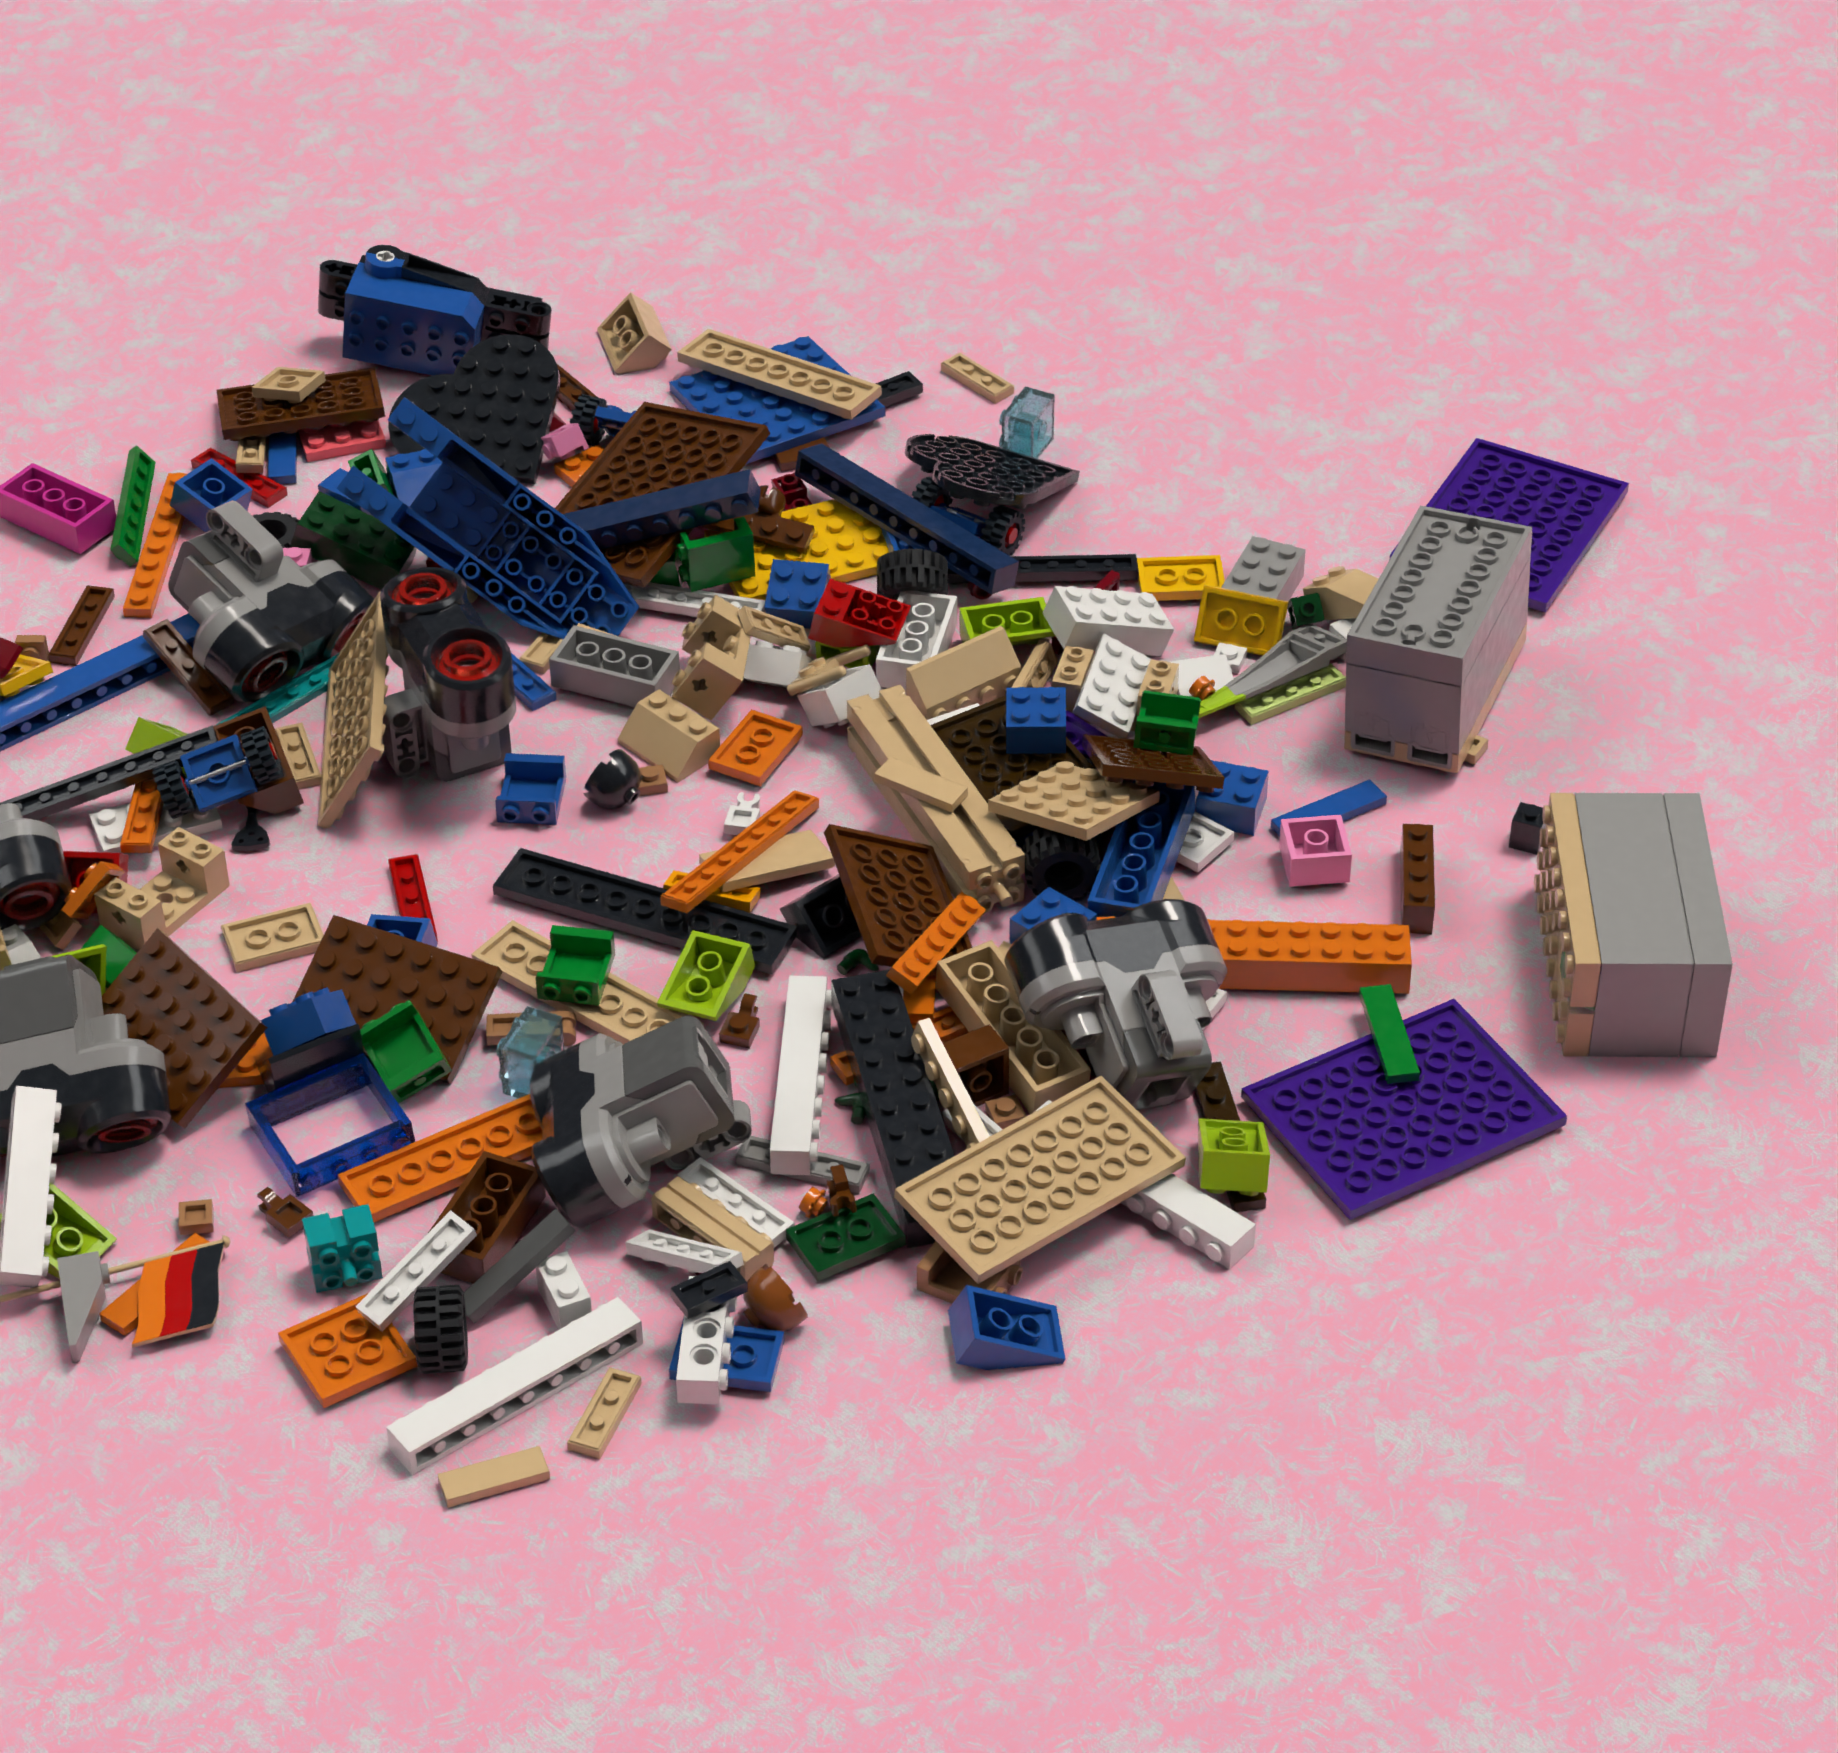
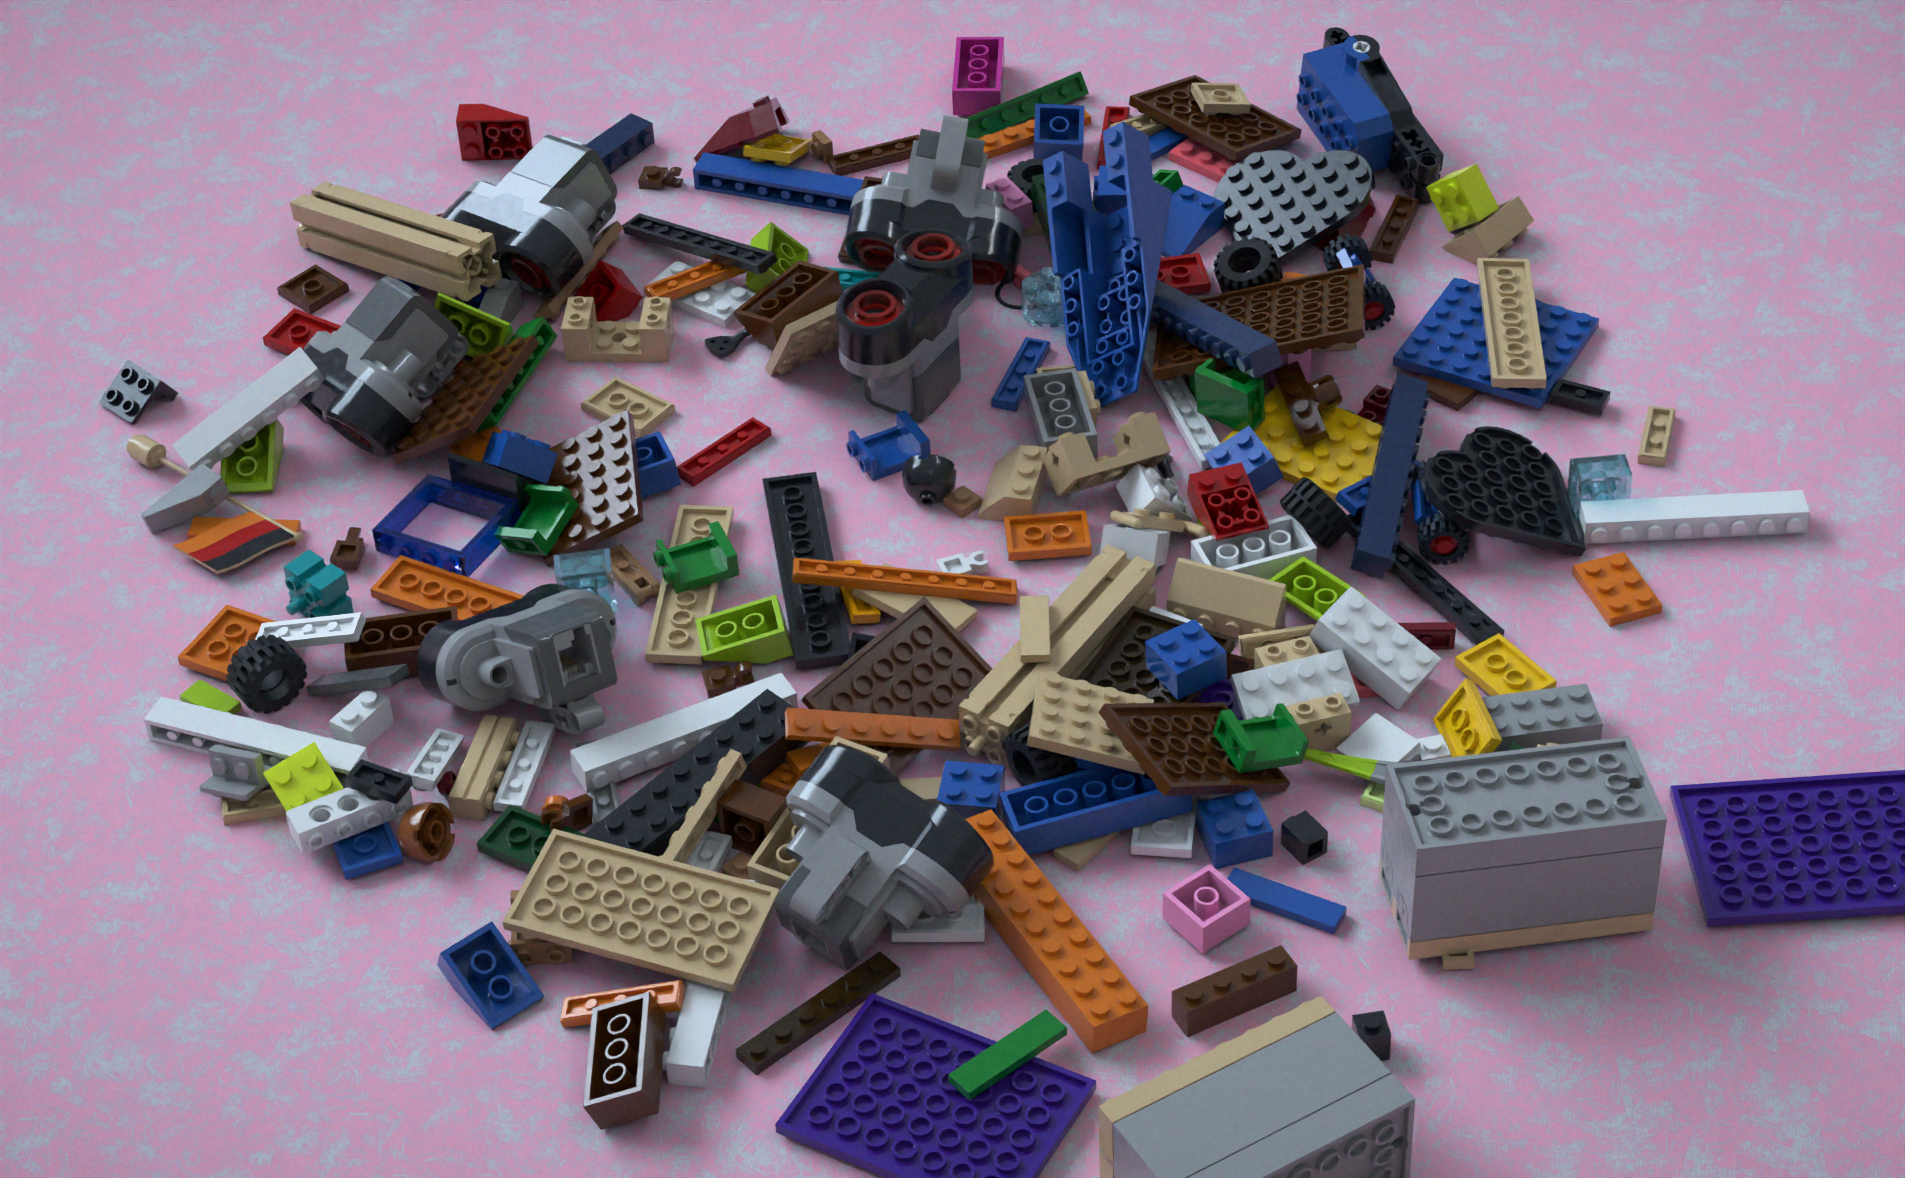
camera: 60 degrees right, 0 degrees up
(81, 900) = (576, 286): orange plate -> none
(196, 1217) = (315, 513): medium nougat plate -> none
(218, 773) = (735, 283): plate -> none
(403, 1400) = (210, 697): none -> lime tile
(493, 1476) = (166, 778): tan tile -> none
(545, 460) = (1243, 257): none -> black tyre
(560, 1410) = (235, 773): none -> light grey bracket
(564, 442) = (1303, 259): bright pink brick -> none
(595, 321) = (1462, 197): none -> neon yellow brick
(638, 1358) = (302, 778): none -> neon yellow brick
(773, 629) = (1168, 464): tan tile -> none
(1100, 402) = (1693, 517): none -> white brick
(1122, 1251) = (578, 1008): none -> orange tile
(1135, 480) = (1617, 589): none -> orange plate
(1202, 688) = (1355, 746): orange plate -> none
(1206, 1271) = (625, 1060): none -> reddish brown brick
(1233, 1156) = (771, 1015): lime slope -> none
(1277, 760) = (1304, 837): none -> black brick

